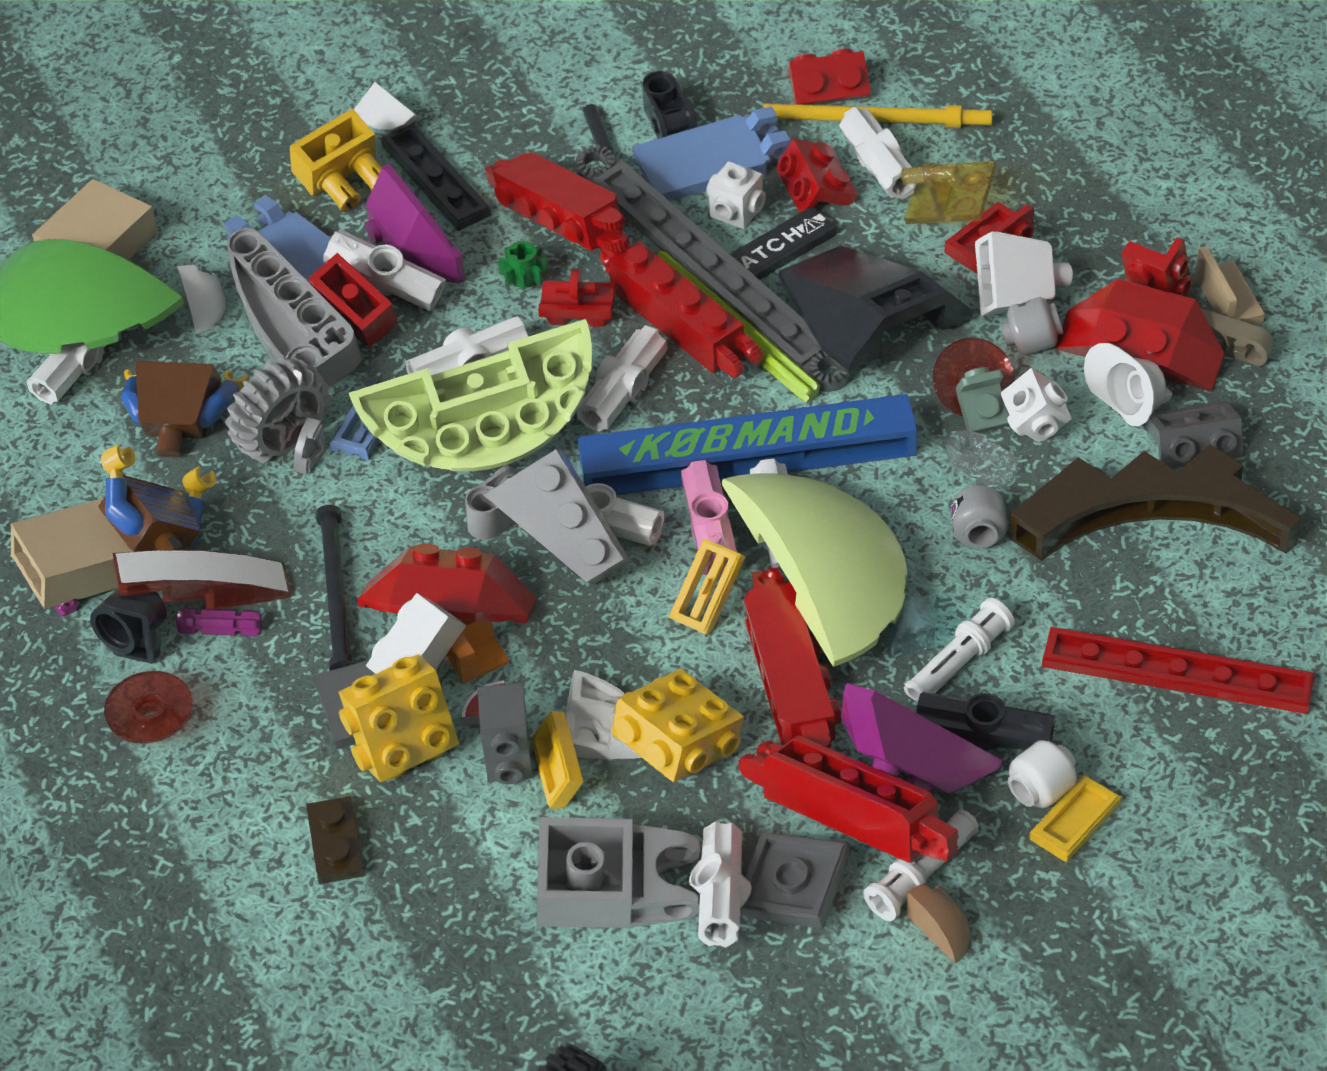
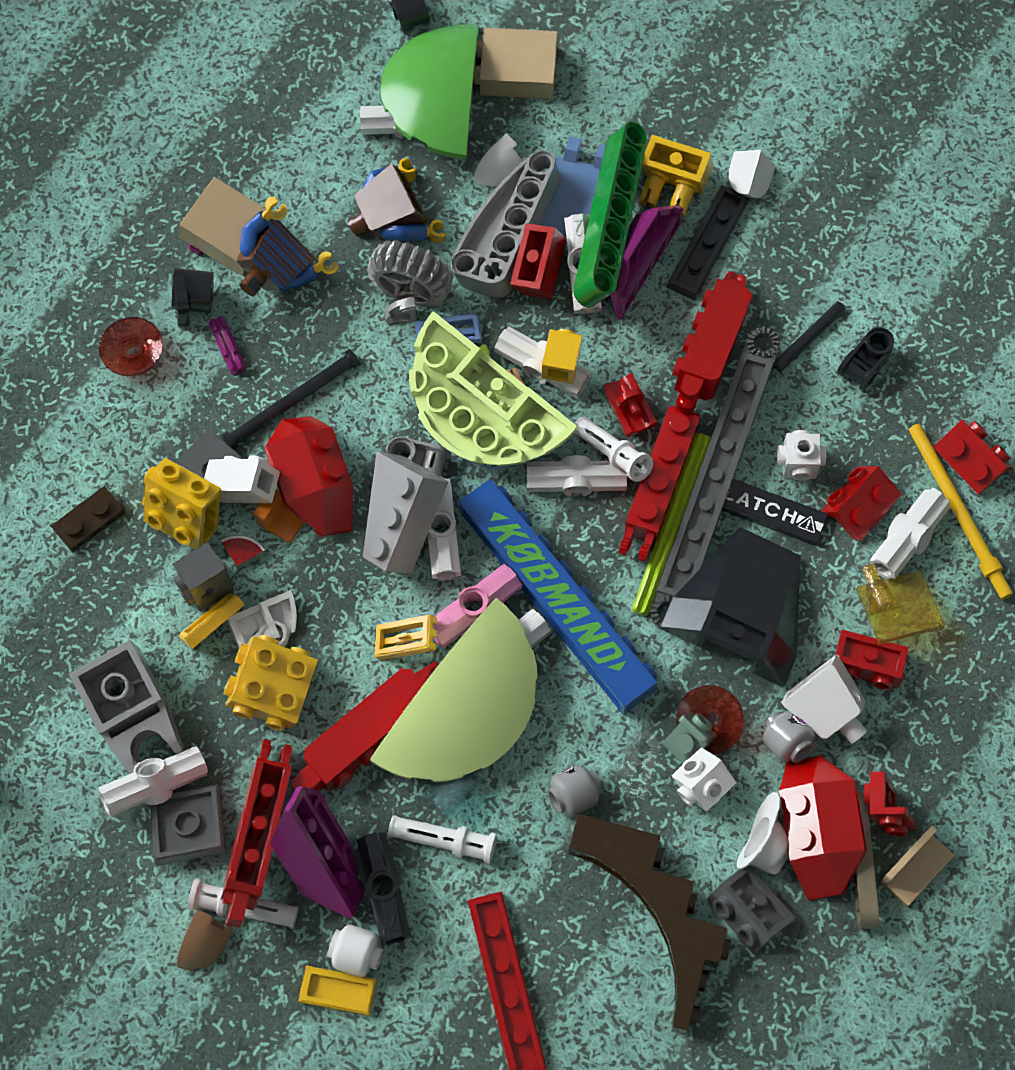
camera: 60 degrees right, 20 degrees up
(195, 574) = (244, 314): slope -> none
(356, 210) = (610, 215): none -> green beam
(486, 316) = (561, 356): none -> yellow brick
(523, 265) = (645, 357): green gear -> none
(633, 316) = (590, 431): none -> white pin
(687, 160) = (841, 414): medium blue tile -> none

